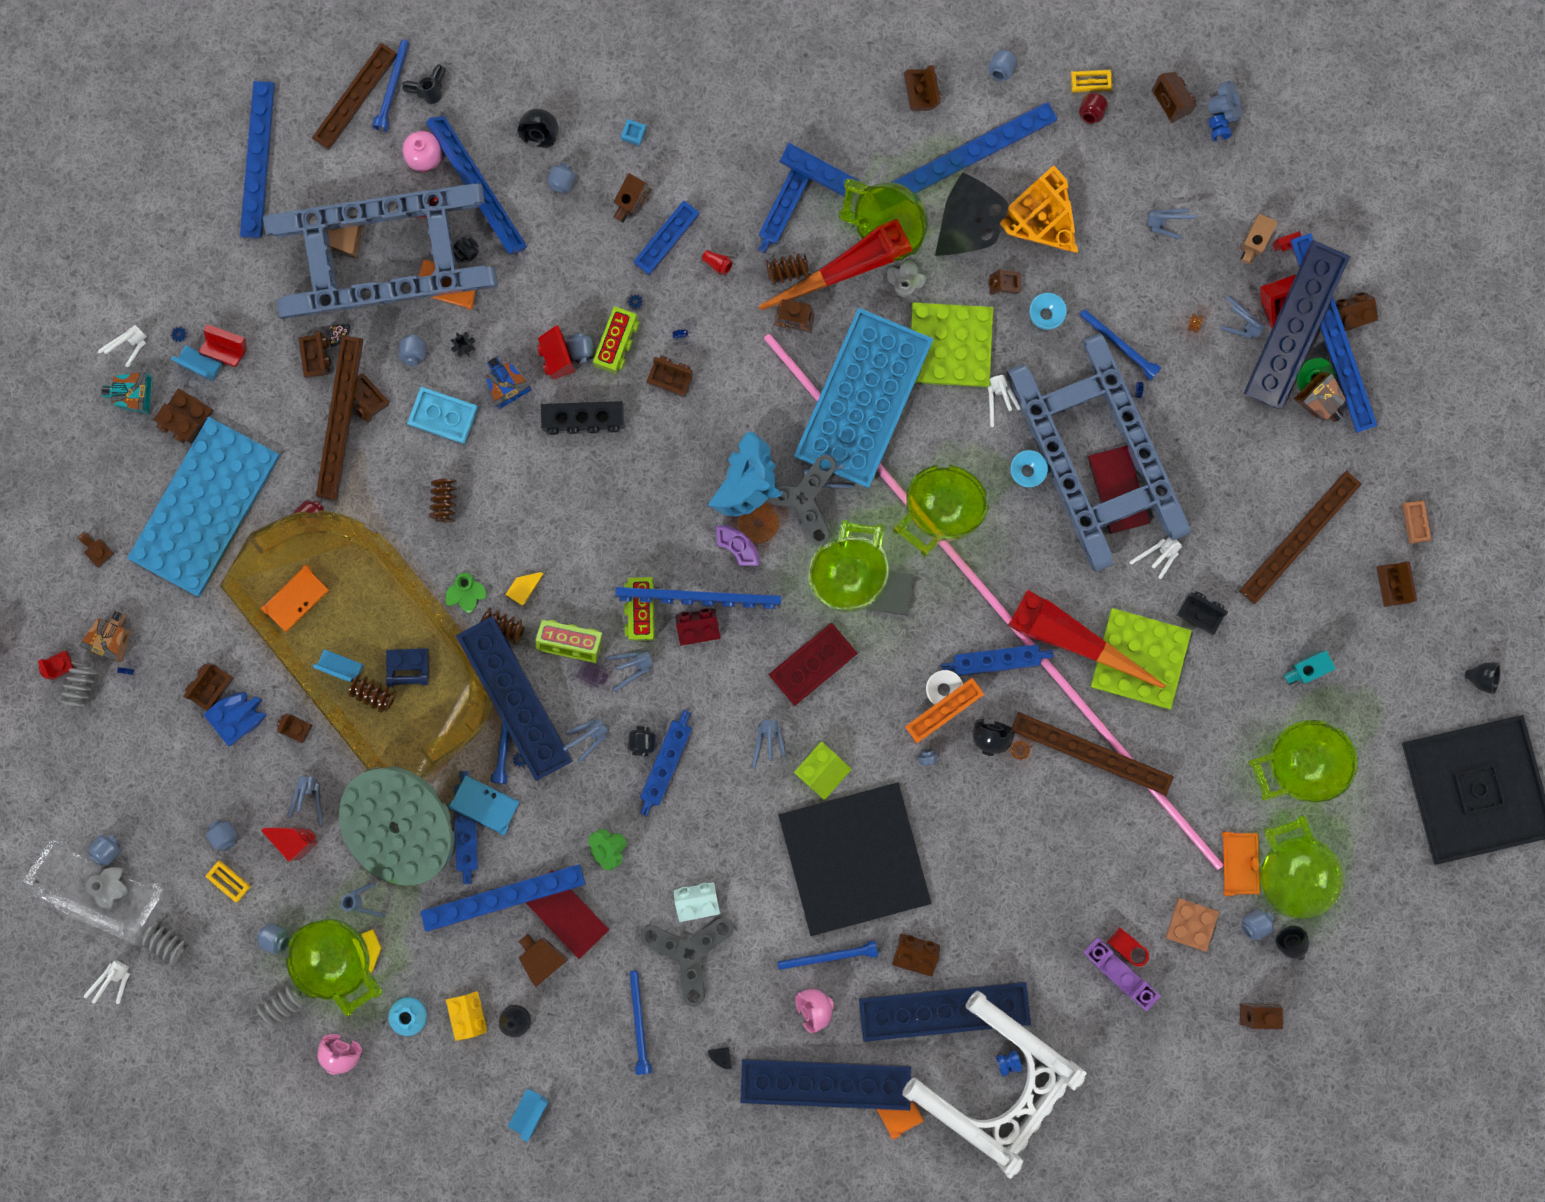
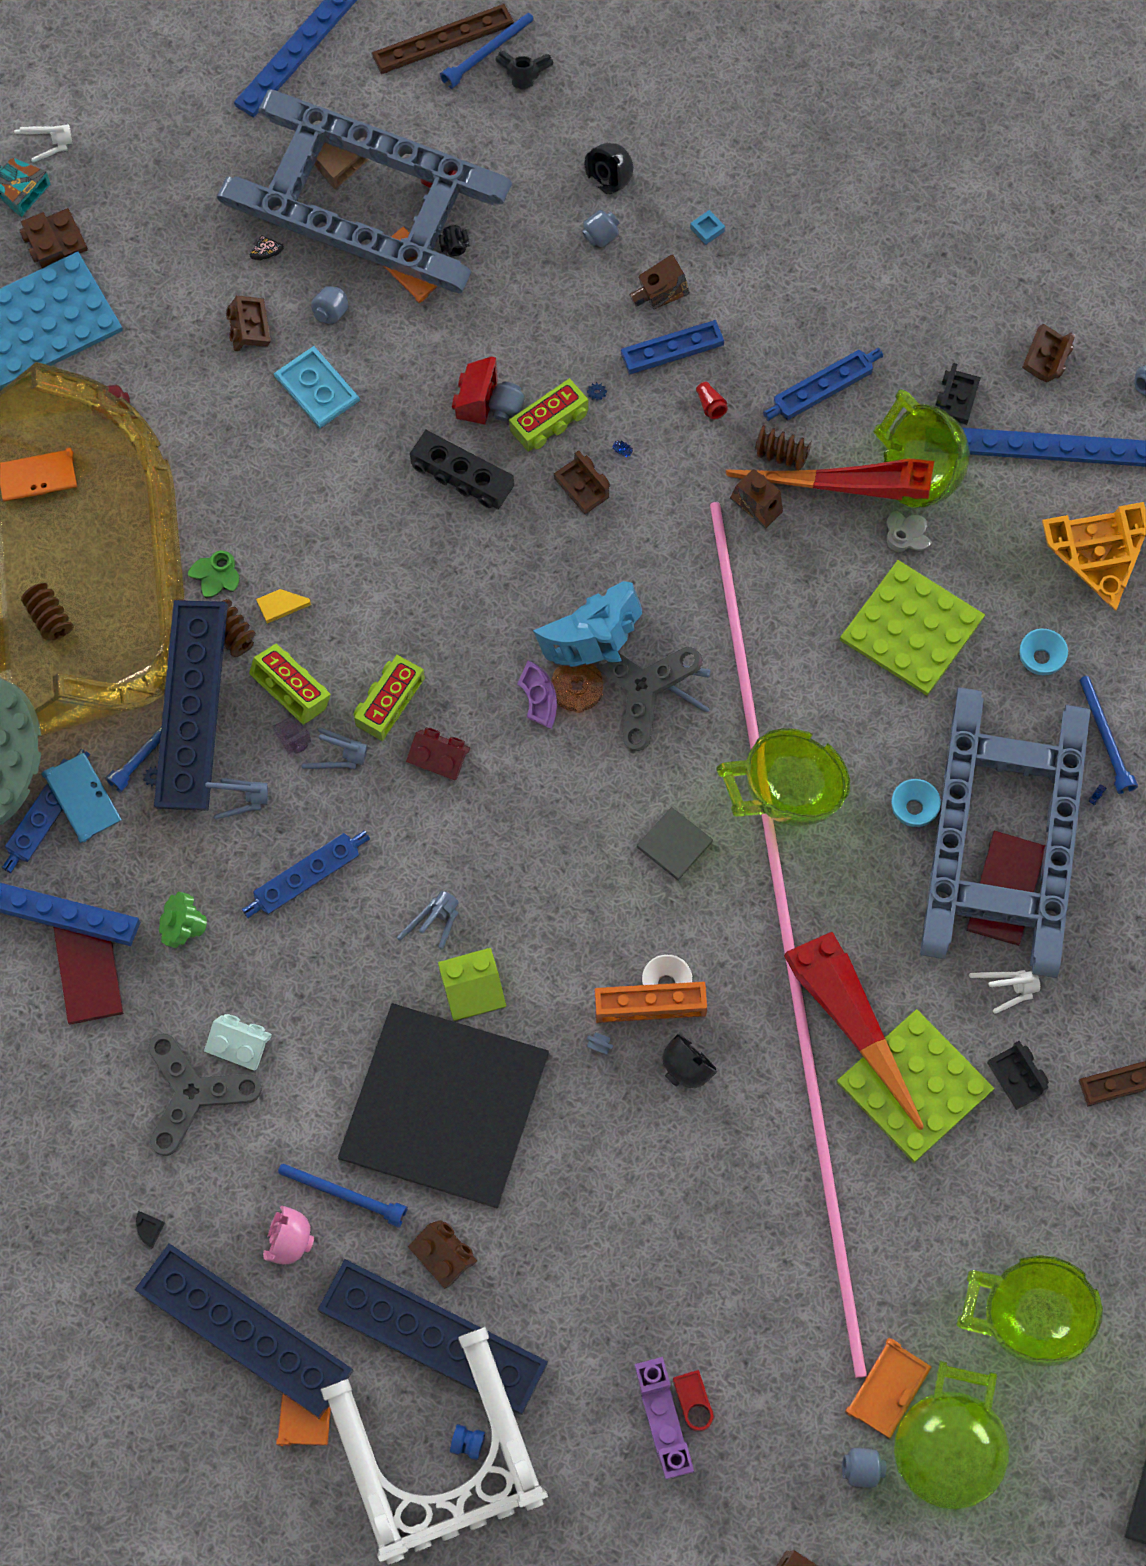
camera: 30 degrees right, 15 degrees down
(177, 330) = (102, 156): clear blue piece -> none
(197, 363) = (104, 196): dark azure panel -> none
(223, 346) = (141, 193): red panel -> none
(314, 355) = (226, 254): reddish brown bracket -> none
(338, 666) = (31, 565): dark azure panel -> none
(339, 417) = (208, 325): reddish brown tile -> none
(407, 660) = (105, 603): dark blue plate -> none
(422, 151) = (475, 125): bright pink cylinder -> none
(442, 500) = (255, 465): reddish brown piece -> none
(465, 349) = (386, 329): black gear -> none
(471, 175) = (509, 165): blue plate -> none
(505, 383) = (403, 391): torso -> none
(540, 958) = (26, 995): reddish brown torso -> none
(641, 741) = (295, 834): black head -> none
(643, 1065) = (58, 1179): blue piece -> none
(690, 597) = (465, 722): blue plate -> none
(813, 664) = (538, 868): dark red tile -> none
(815, 169) = (876, 364): blue plate -> none
(850, 570) = (644, 787): clear neon green windscreen -> none
(864, 396) = (779, 621): dark azure plate -> none
(881, 157) = (958, 394): none -> black bracket
(965, 202) = (1000, 511): black piece -> none
(997, 660) = (749, 986): blue plate -> none
(1000, 387) = (938, 700): white plant -> none
(1005, 282) = (1015, 596): reddish brown bracket -> none
(1013, 750) = (702, 1097): clear orange bush -> none
(1092, 753) = (791, 1154): reddish brown tile -> none
(1192, 924) = (785, 1421): nougat plate -> none
(1293, 942) = (893, 1516): black helmet -> none
(1319, 661) = (1117, 1218): teal torso -> none

